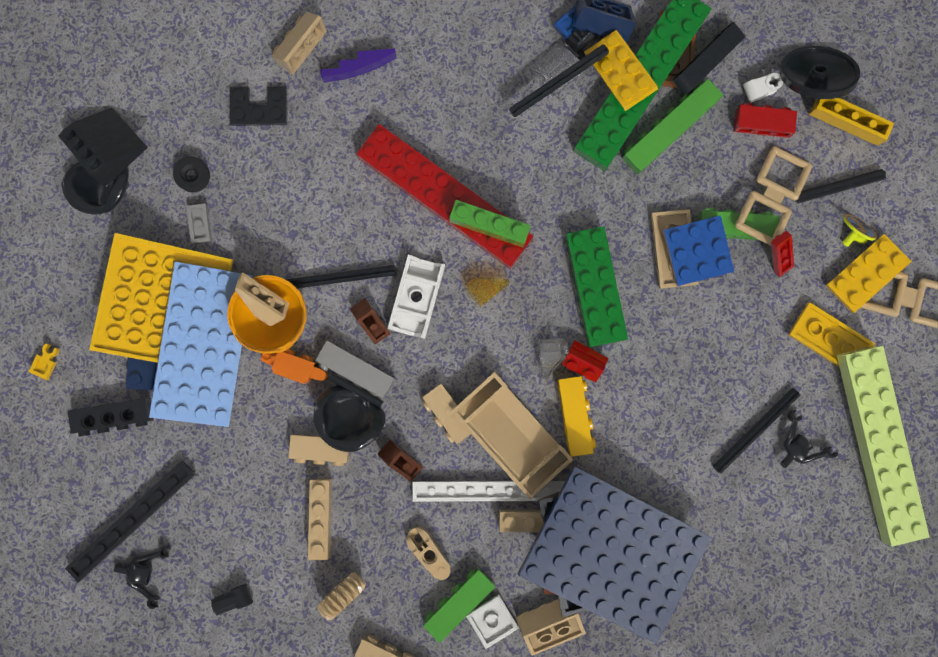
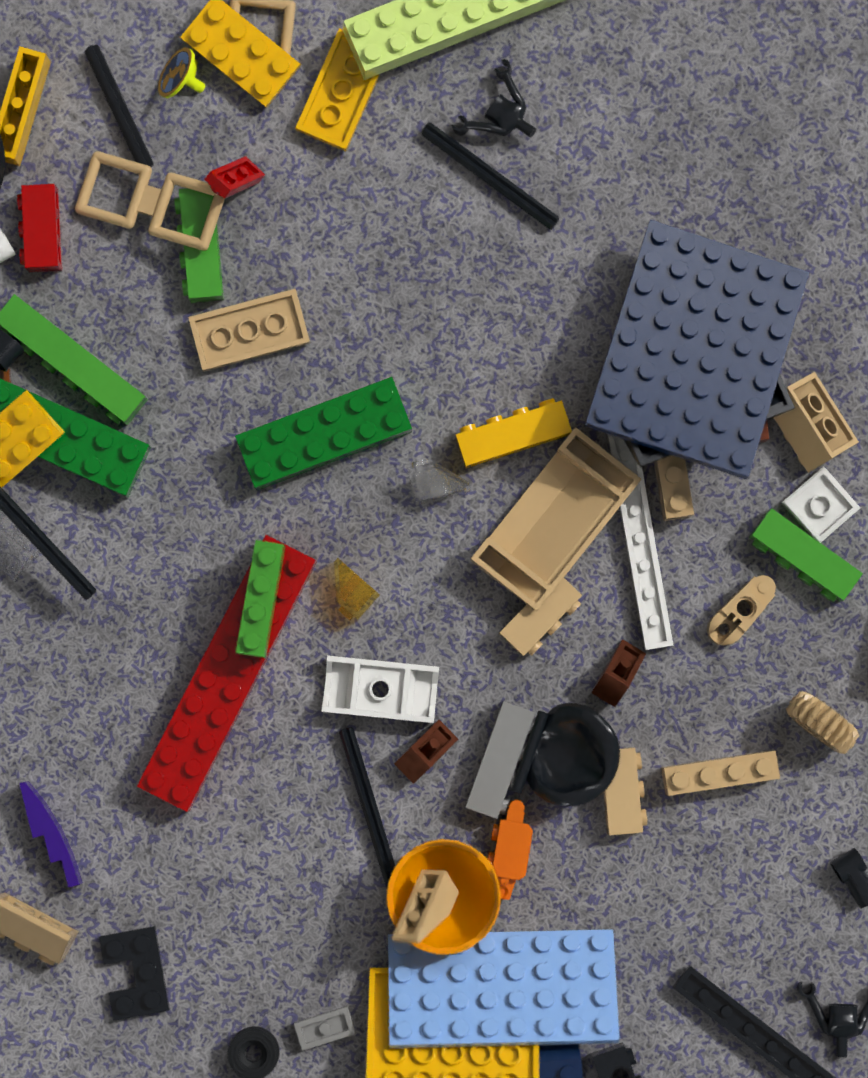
camera: 100 degrees left, 0 degrees up
(585, 361) = (433, 432): red brick -> none
(698, 250) = (248, 296): blue plate -> none

